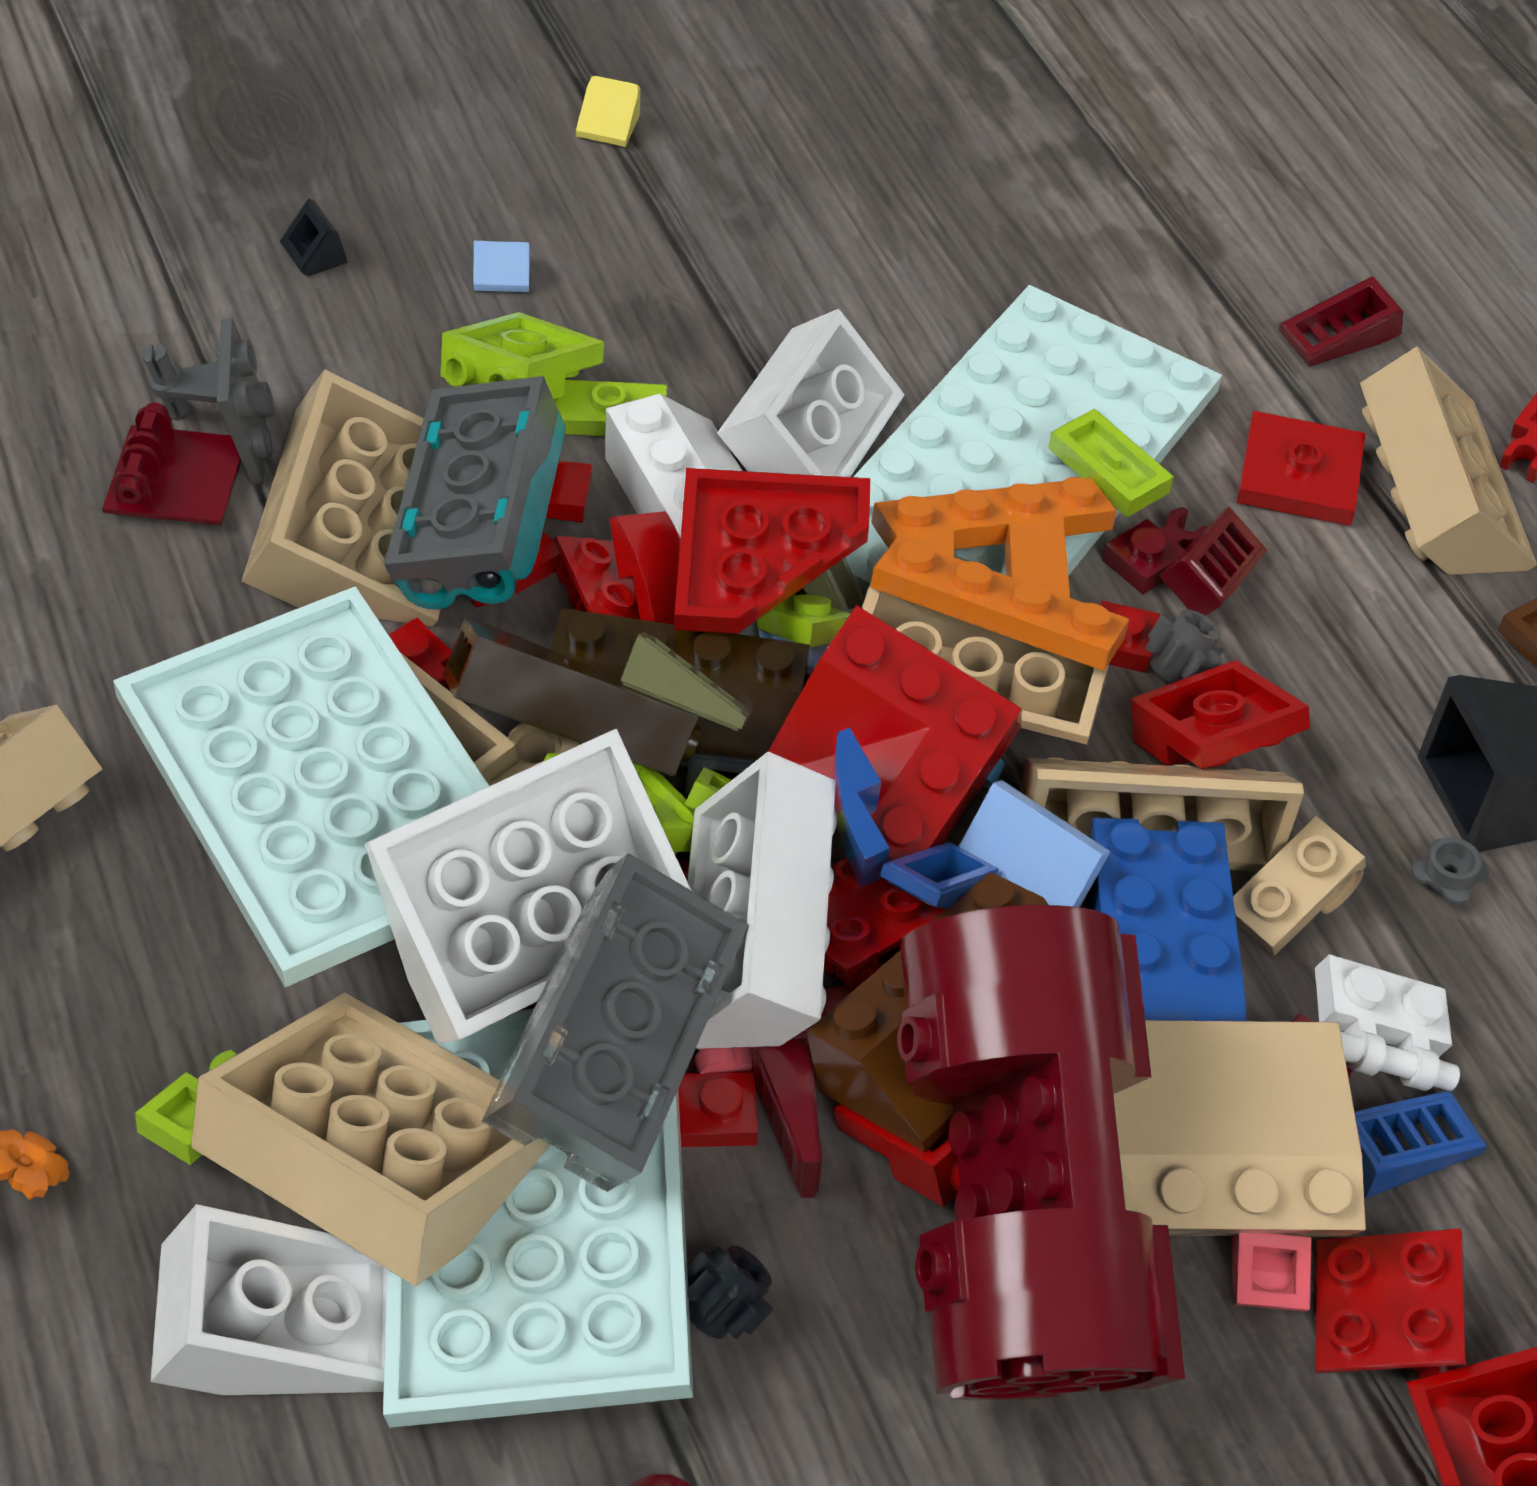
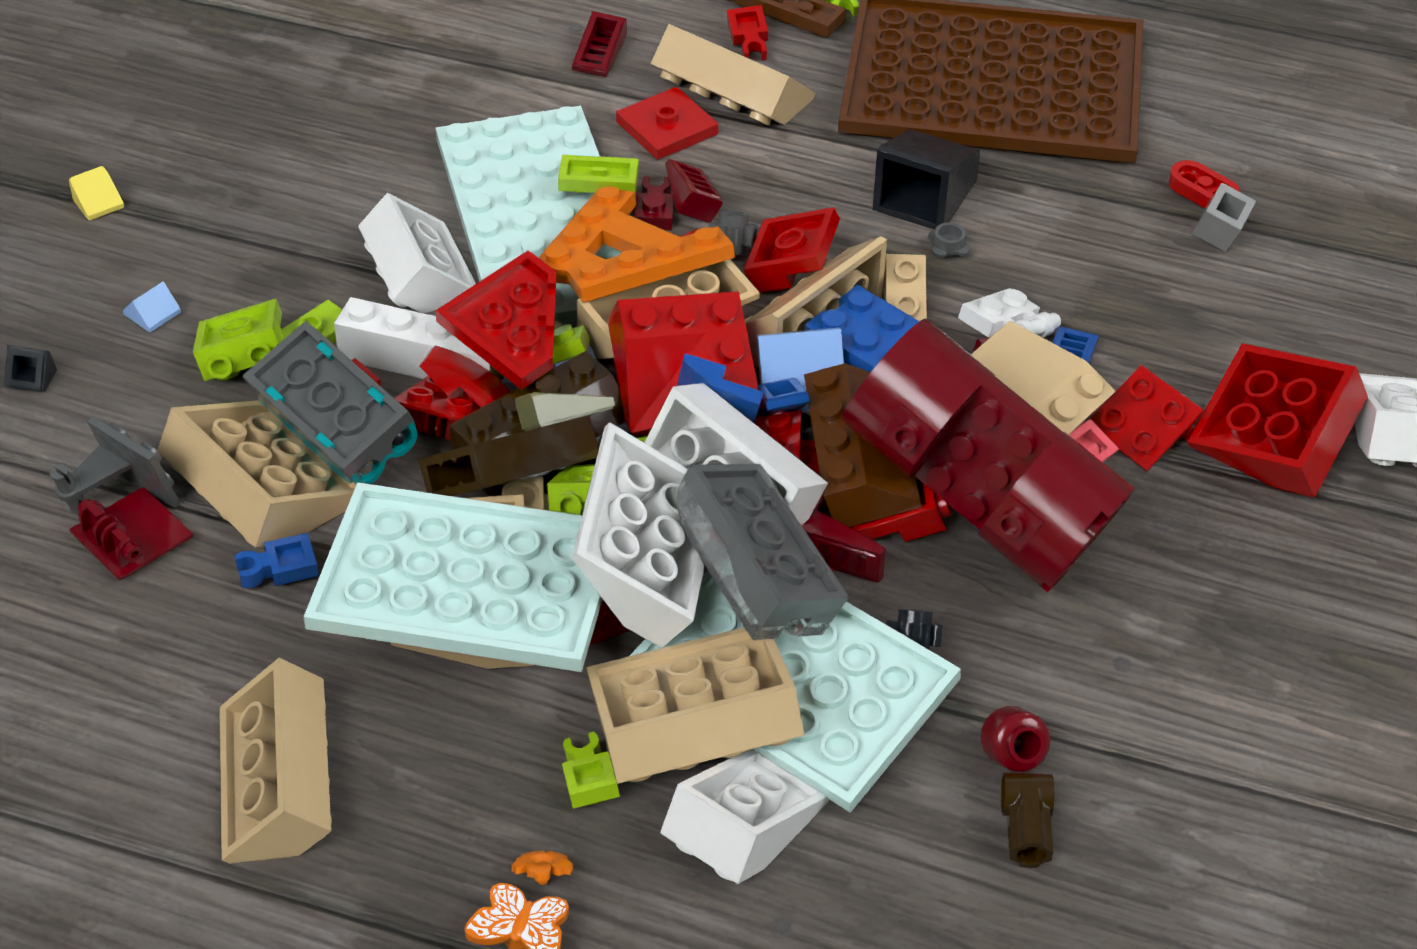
camera: 45 degrees left, 5 degrees down
(234, 610) = (283, 560): none -> blue plate

